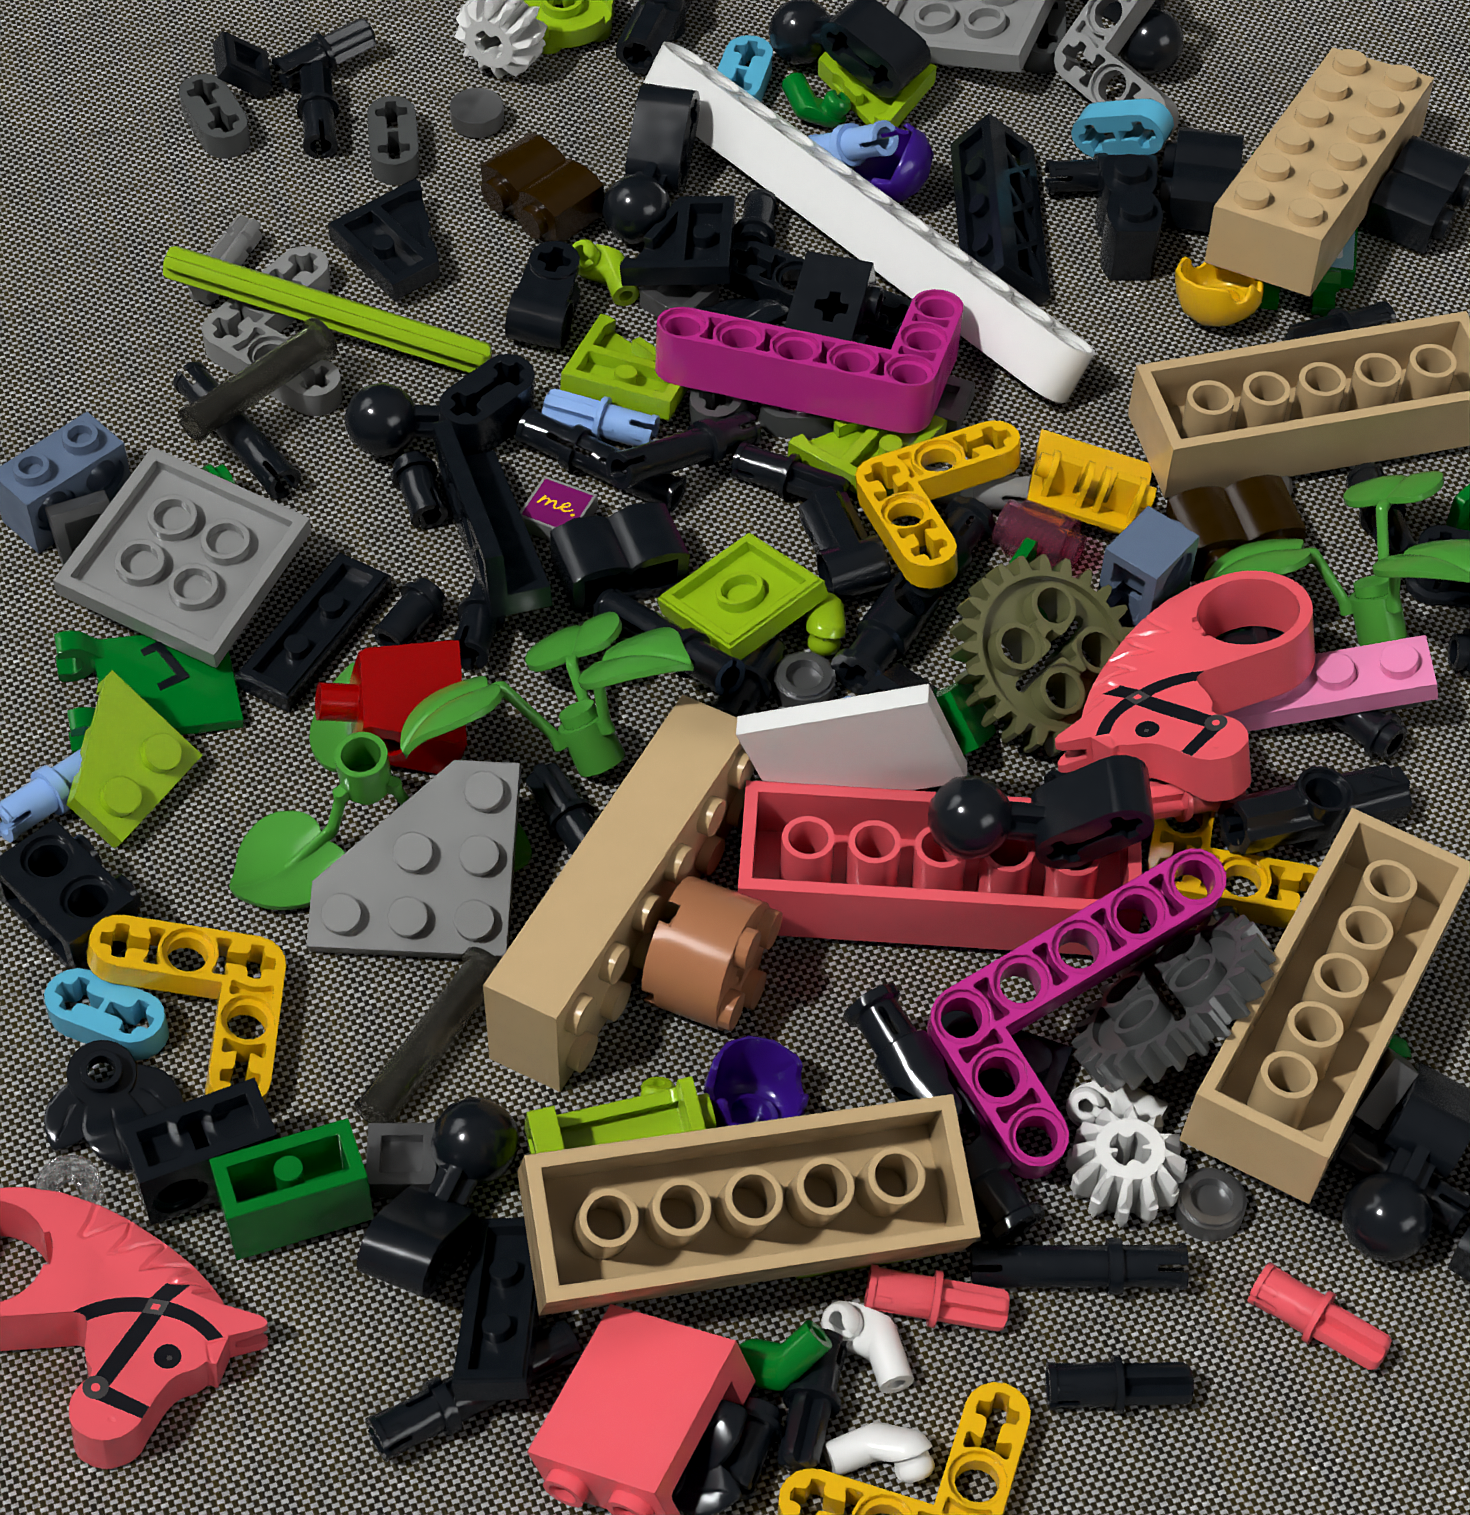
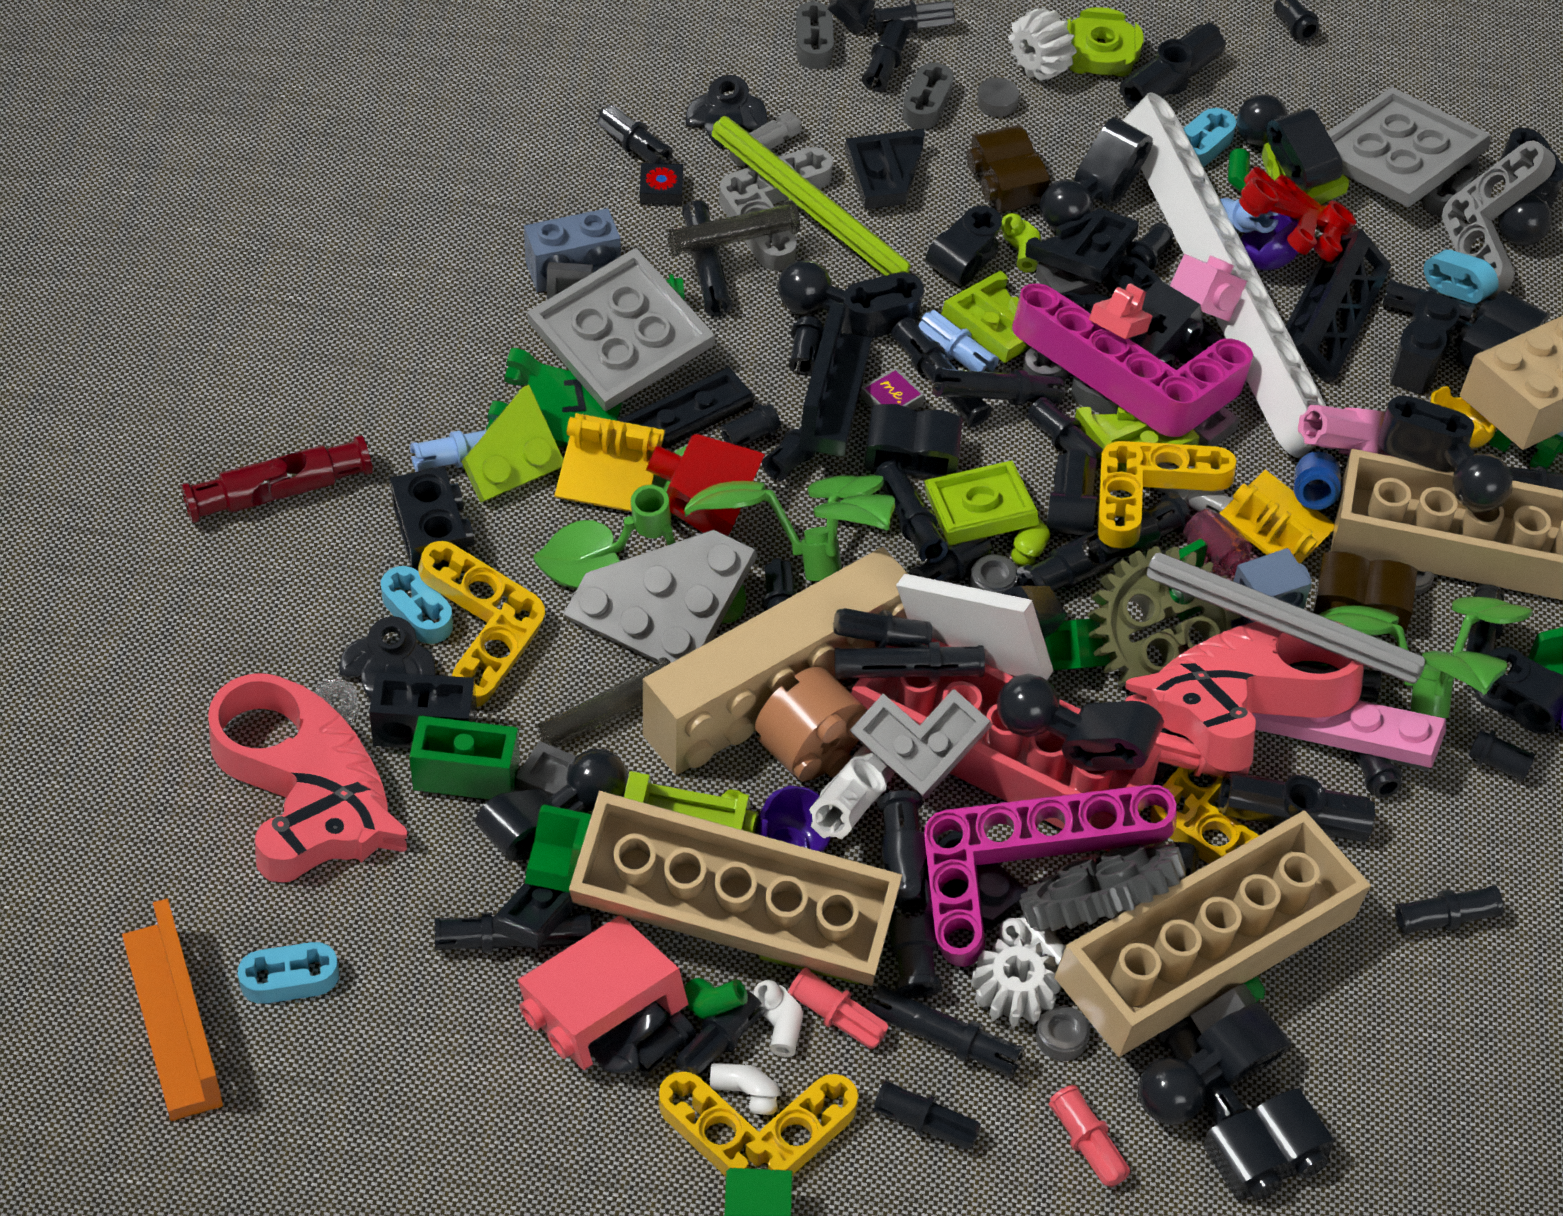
camera: 25 degrees right, 0 degrees up
(60, 314) = (633, 135): none -> black axle
(125, 360) = (661, 184): none -> black tile
(145, 245) = (739, 106): none -> black plate
(259, 731) = (606, 461): none -> yellow hinge
(490, 1254) = (556, 847): none -> green panel
(744, 796) = (882, 628): none -> black axle
(792, 305) = (1123, 312): none -> coral tile
(809, 1016) = (850, 794): none -> white piece
(818, 814) = (909, 662): none -> black pin
(864, 236) = (1209, 285): none -> bright pink brick
(864, 932) = (924, 751): none -> light grey plate
(941, 121) = (1286, 198): none -> red plant
(1108, 419) = (1317, 480): none -> blue brick
(1128, 341) = (1342, 428): none -> bright pink piece
(1199, 588) = (1286, 618): none -> light grey axle
(1236, 317) = (1441, 441): none -> black beam

